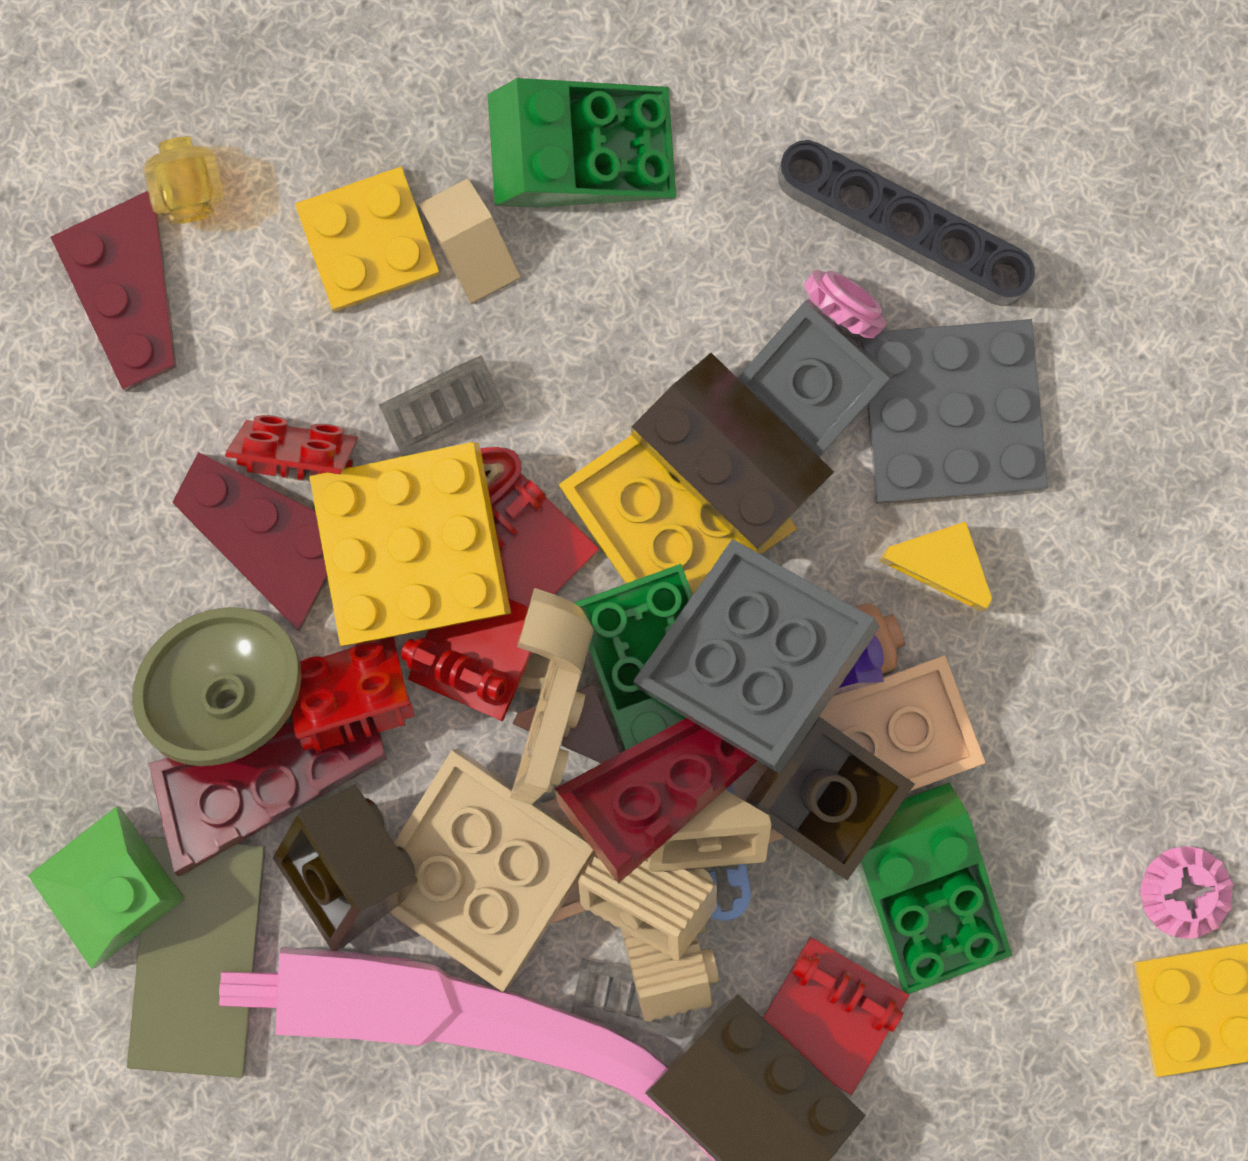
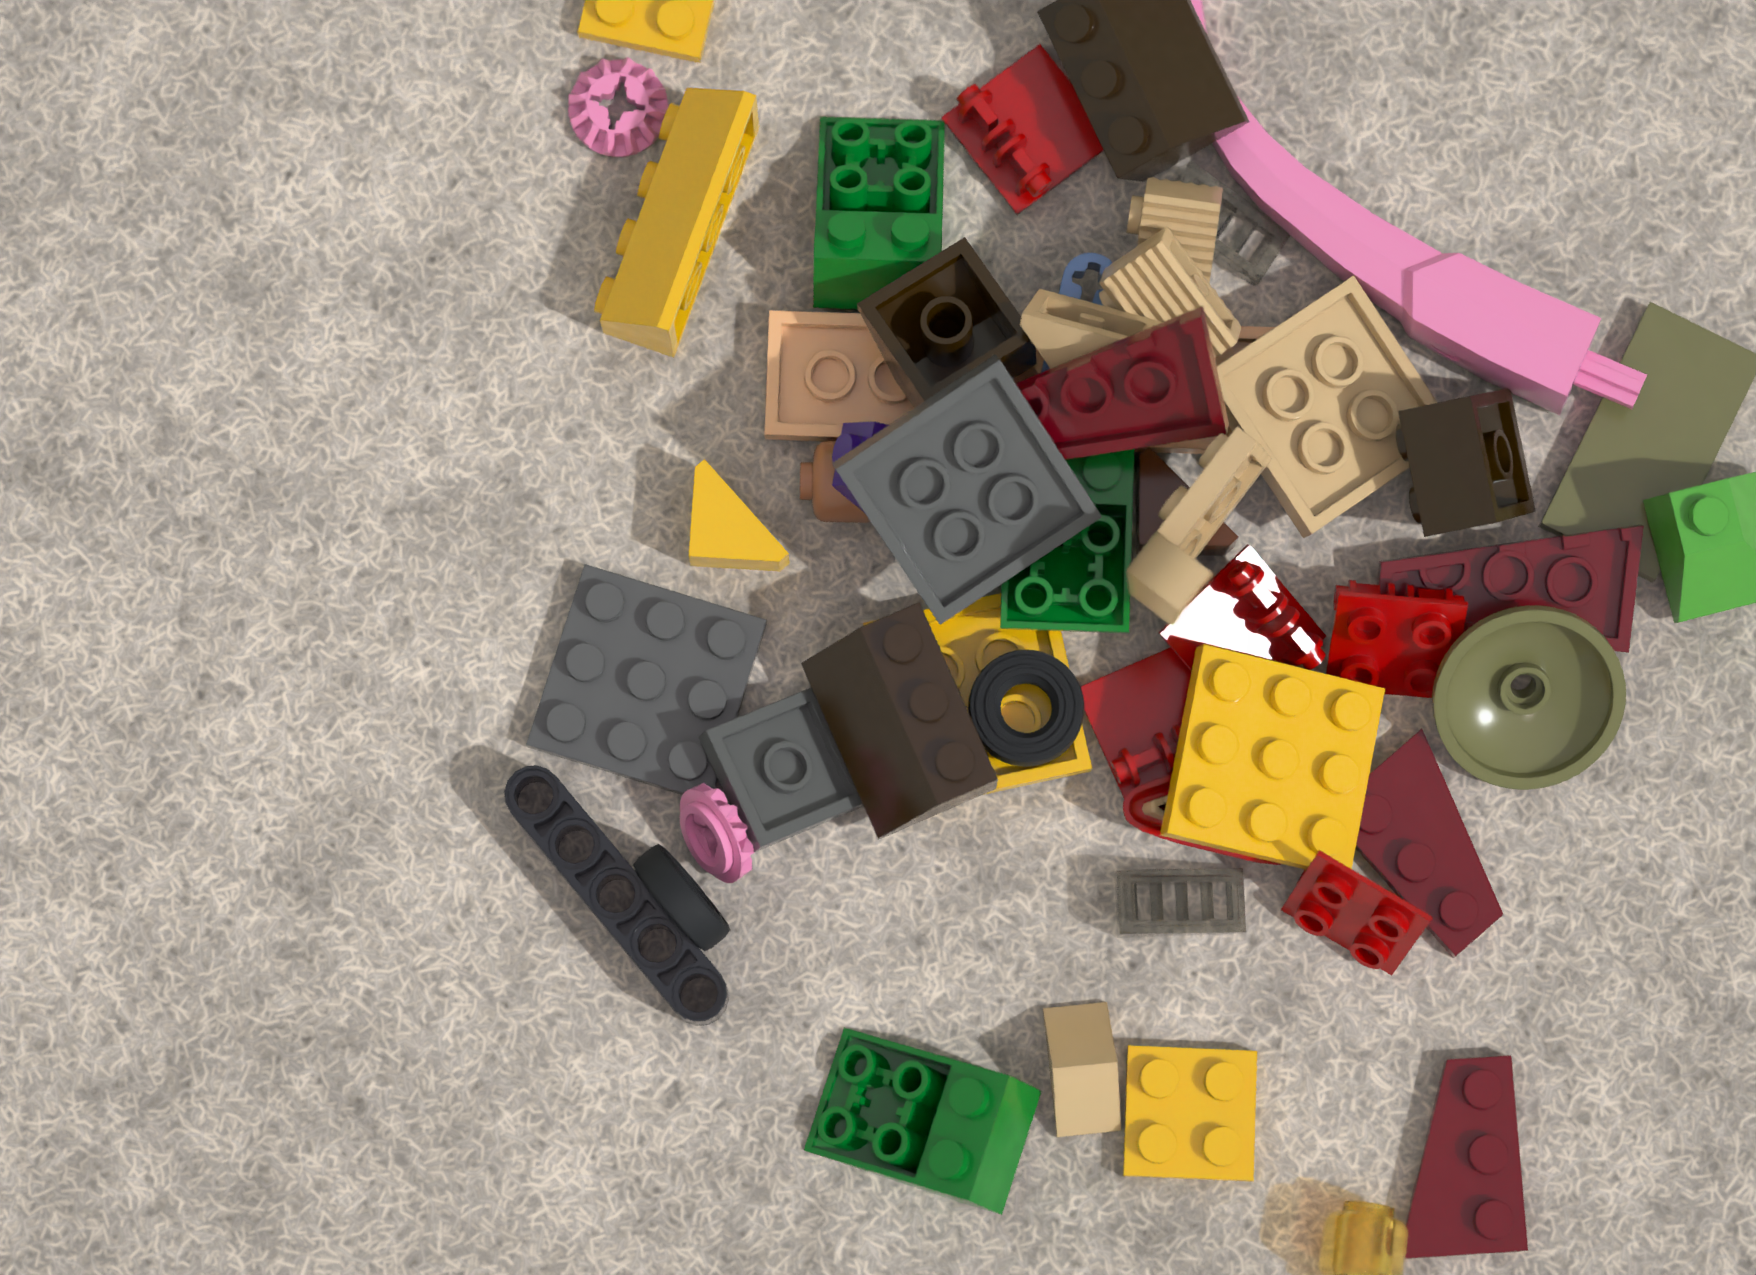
camera: 155 degrees left, 5 degrees down
(621, 474) = (1035, 669): none -> black tyre
(852, 238) = (681, 897): none -> black tyre
(1094, 810) = (679, 219): none -> yellow slope

